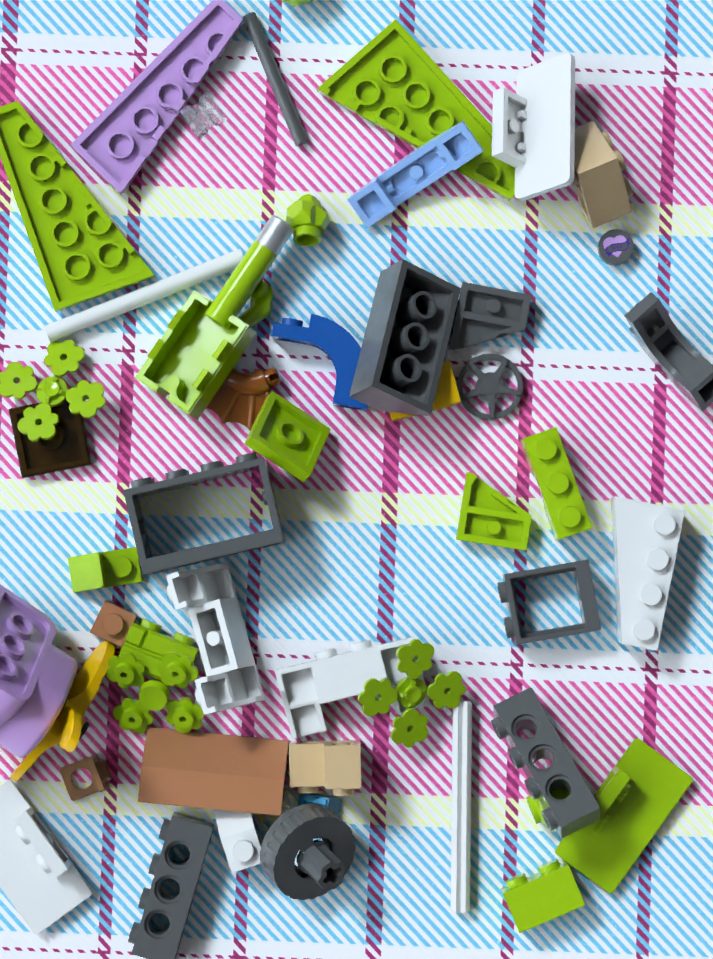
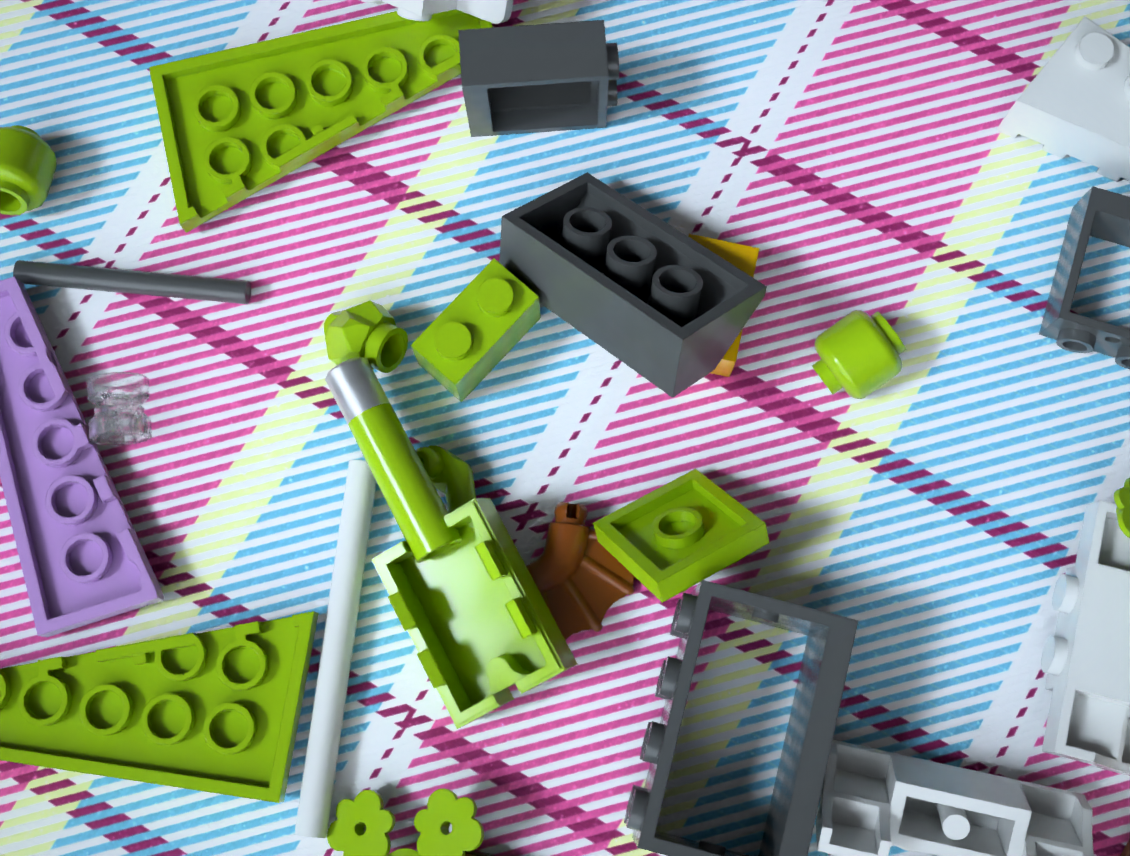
camera: 65 degrees left, 10 degrees down
(335, 343) = (582, 389): blue arch -> none
(341, 277) = (477, 330): none -> lime brick
(414, 173) = (383, 143): light blue slope -> none
(434, 482) = (858, 354): none -> lime head
(488, 314) = (645, 152): dark grey wing -> none
(490, 386) = (752, 208): dark grey wheel -> none
(491, 517) = (950, 302): lime wing -> none
(494, 234) = (538, 77): none -> dark grey window
(556, 483) = (993, 185): lime arch -> none

